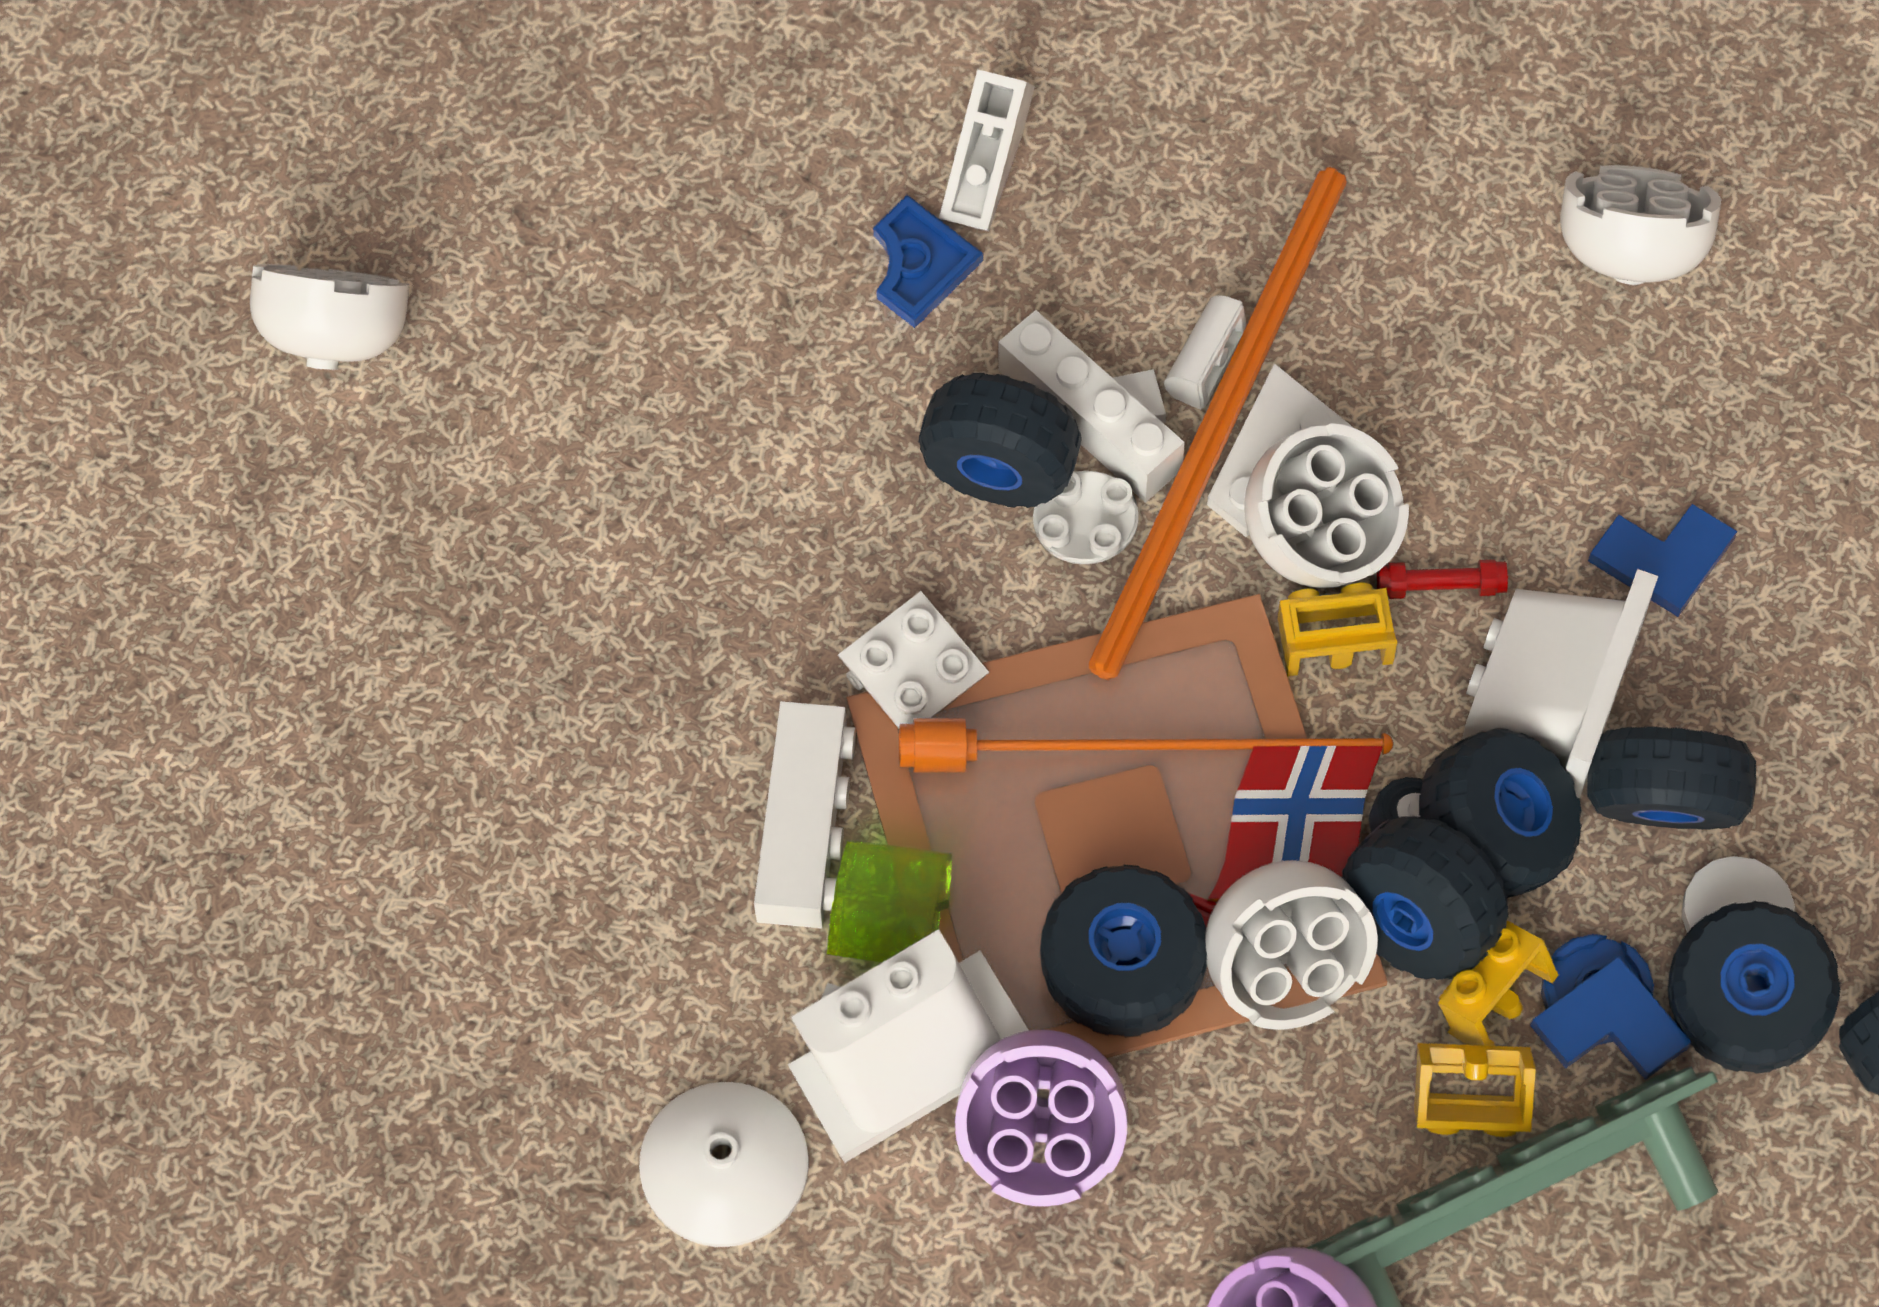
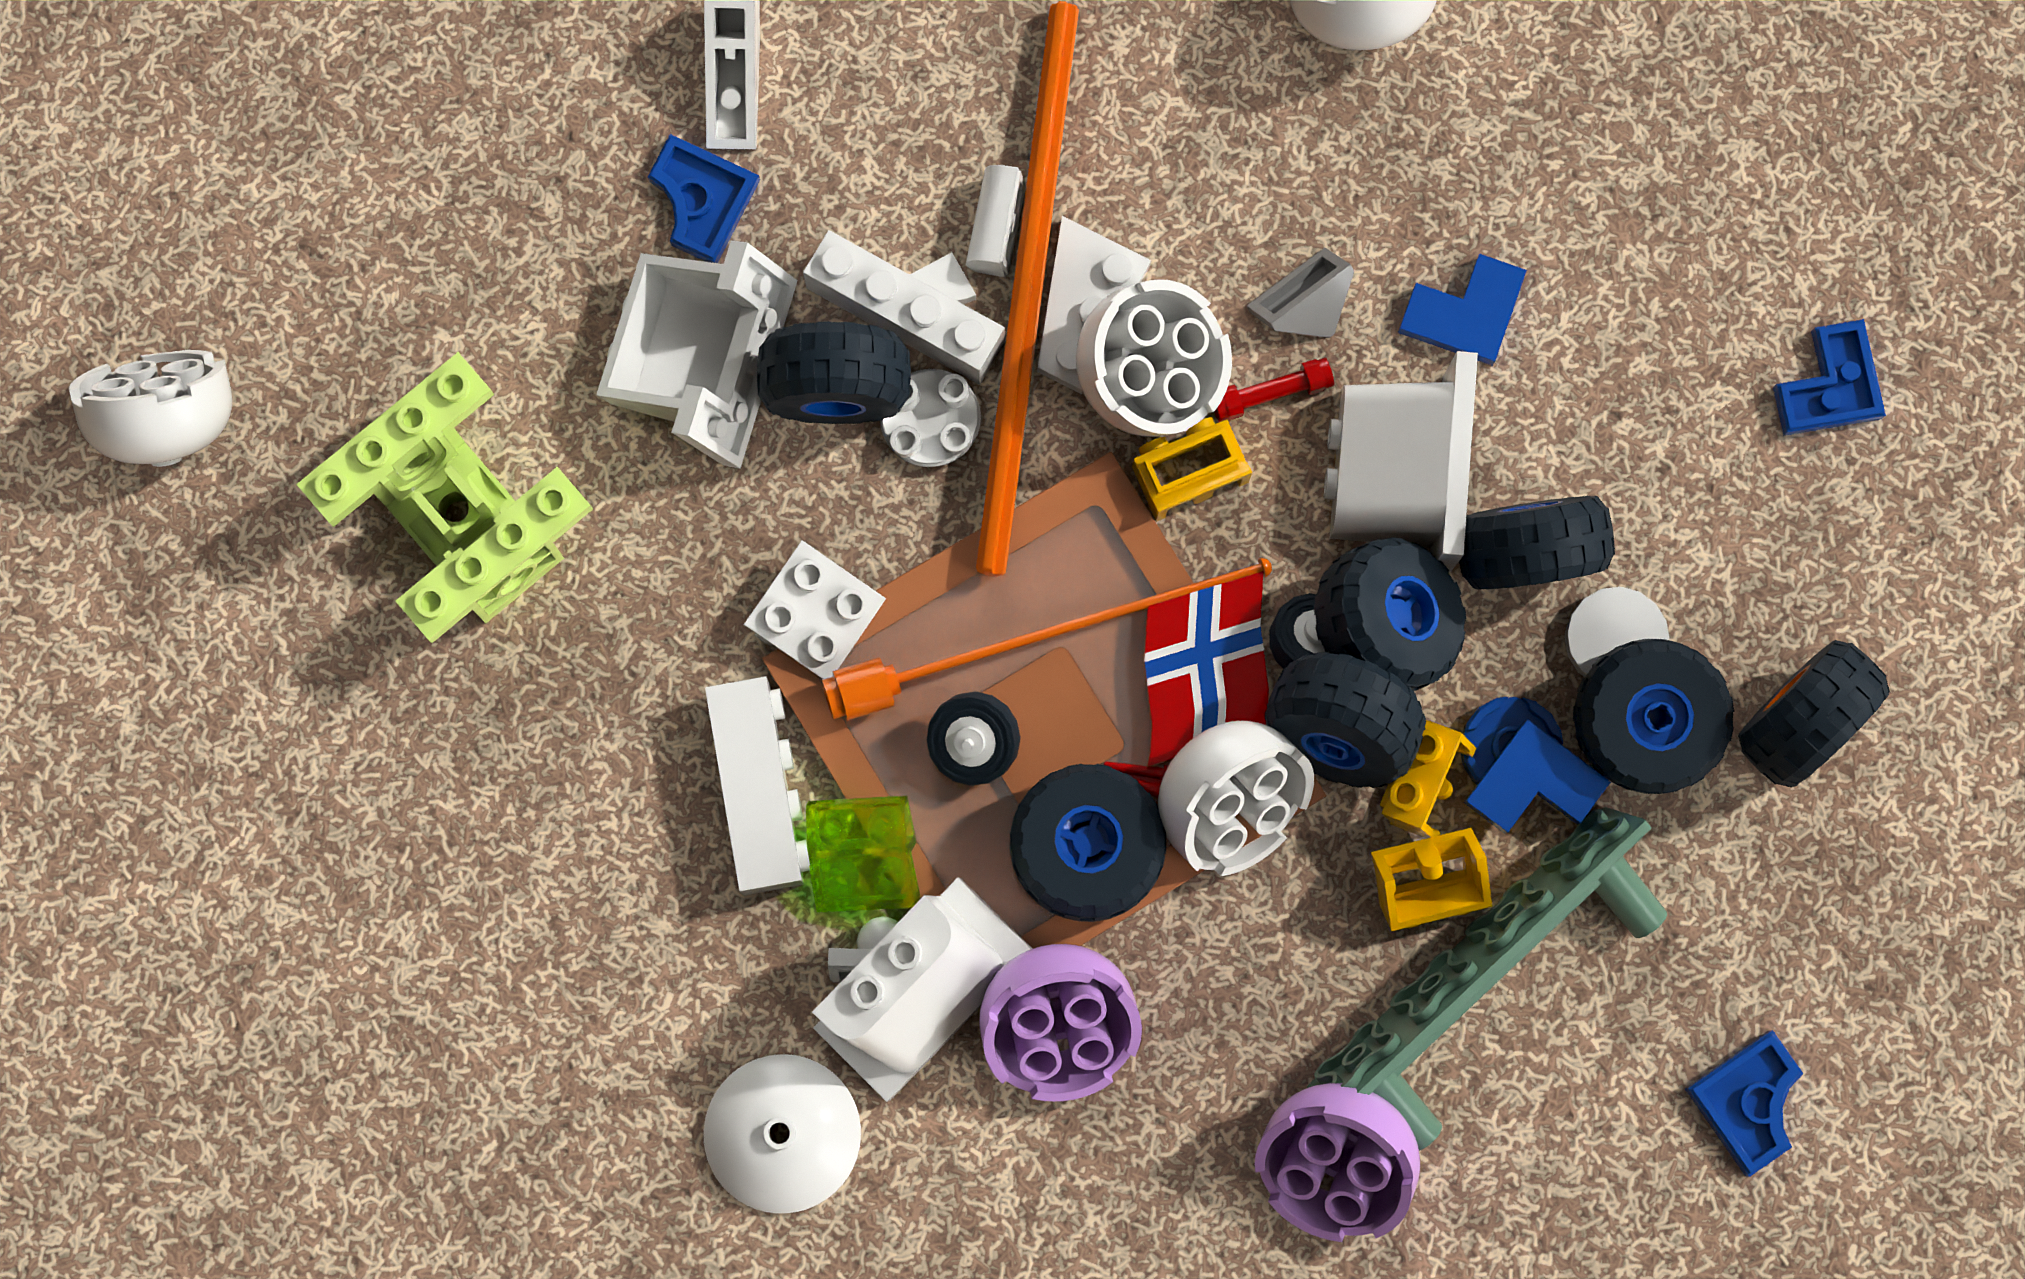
camera: 20 degrees left, 15 degrees up
(567, 431) = (422, 467): none -> yellowish green piece
(867, 383) = (694, 345): none -> white windscreen
(1036, 821) = (973, 738): none -> black wheel
(1504, 503) = (1307, 298): none -> light grey slope

